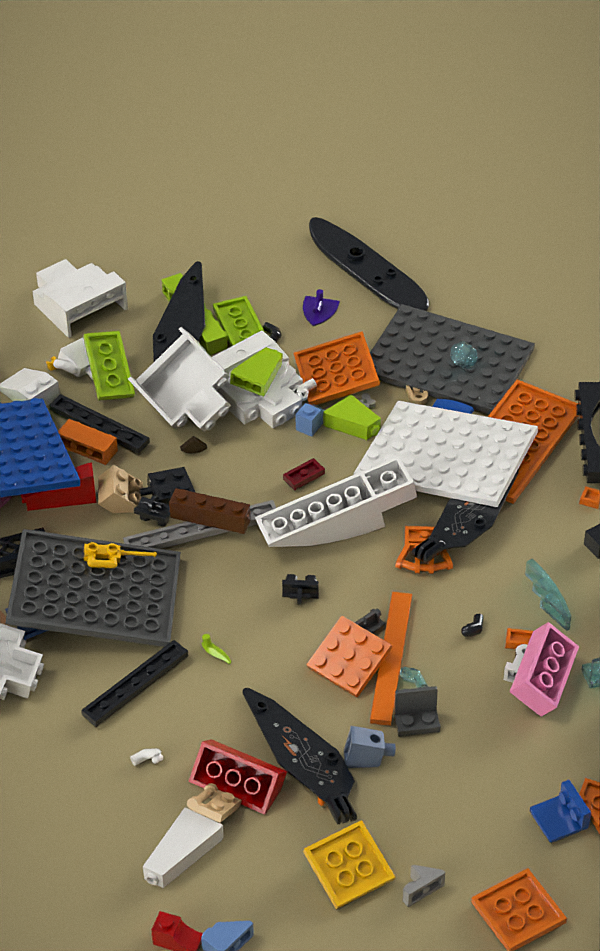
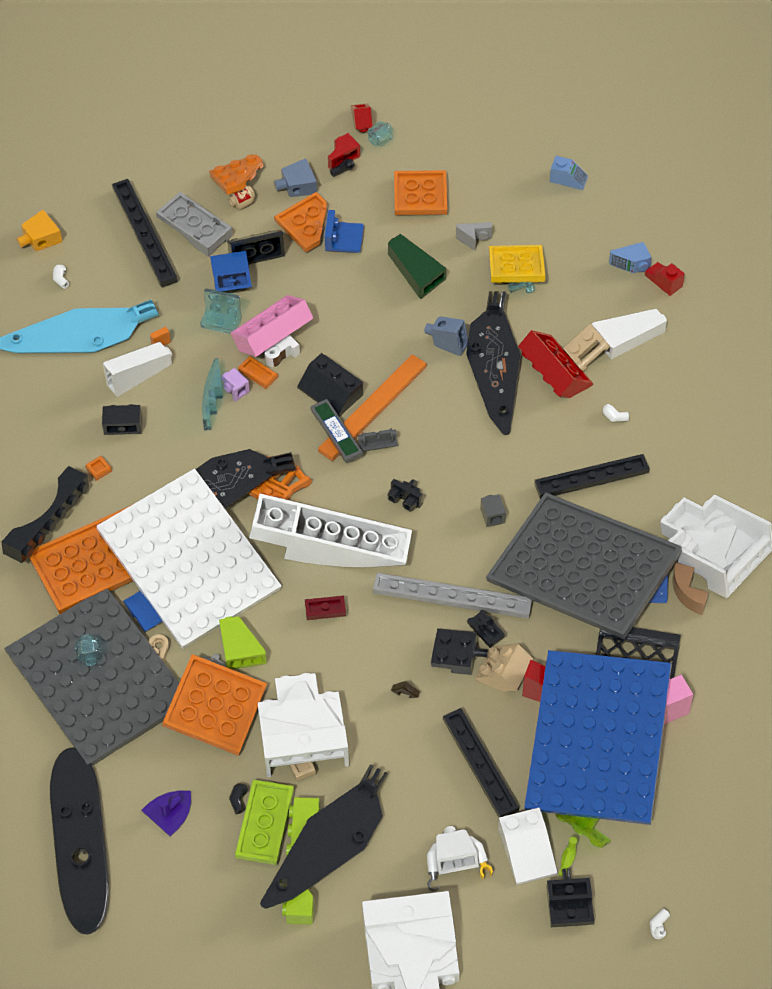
camera: 150 degrees left, 10 degrees up
(88, 441) = (503, 743): orange brick -> none
(108, 365) = (435, 818): lime plate -> none
(111, 551) = (552, 583): yellow piece -> none
(185, 384) = (383, 737): white panel -> none
(210, 511) = (440, 589): reddish brown brick -> none
(210, 609) = (493, 510): none -> dark grey brick
(213, 649) = (510, 480): lime bar -> none
(257, 371) = (304, 703): lime slope -> none
(303, 389) = (263, 694): white arm -> none
(309, 419) = (274, 664): medium blue slope -> none
(349, 656) = (409, 412): orange plate -> none
(405, 610) = (336, 431): none -> tile
(413, 675) = (368, 384): clear light blue arm -> none
(416, 711) = (389, 346): dark grey bracket -> none
(444, 656) = (332, 382): none -> black slope
(458, 816) = (416, 265): none -> dark green slope
(473, 628) = (288, 398): black arm -> none
(535, 613) = (235, 384): none -> lavender brick

